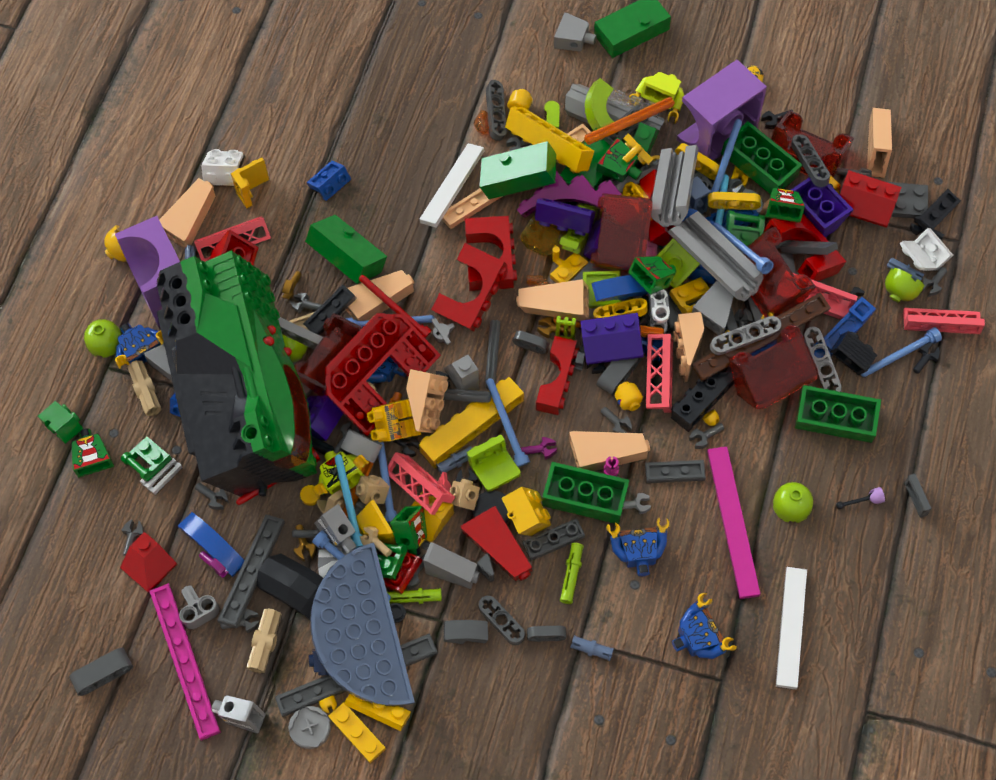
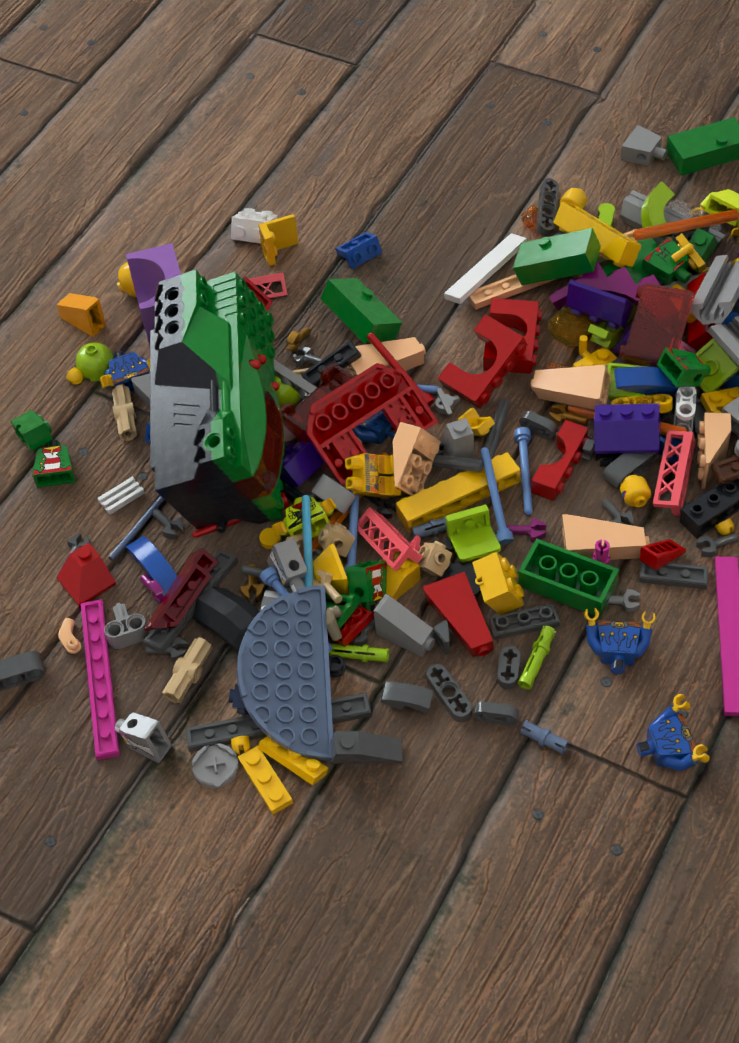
camera: 15 degrees right, 10 degrees down
(78, 287) = (82, 312): none -> light orange slope
(87, 356) = (74, 376): none -> yellow hinge
(145, 627) = (67, 638): none -> light nougat arm
(151, 454) = (114, 473): green plate -> none
(182, 506) = (136, 528): none -> sand blue axle
(188, 213) = (212, 256): light nougat slope -> none
(243, 565) = (183, 591): none -> dark red wedge
(387, 577) = (331, 623): none -> dark tan arm
(440, 689) = (364, 748): none -> dark grey slope
(476, 350) = (479, 425): none -> yellow bracket
(518, 356) = (522, 436): none -> medium blue piece
(553, 586) = (513, 668): none -> dark grey beam
(566, 323) = (580, 405): lime tile -> none
(659, 464) = (660, 553): none -> red slope

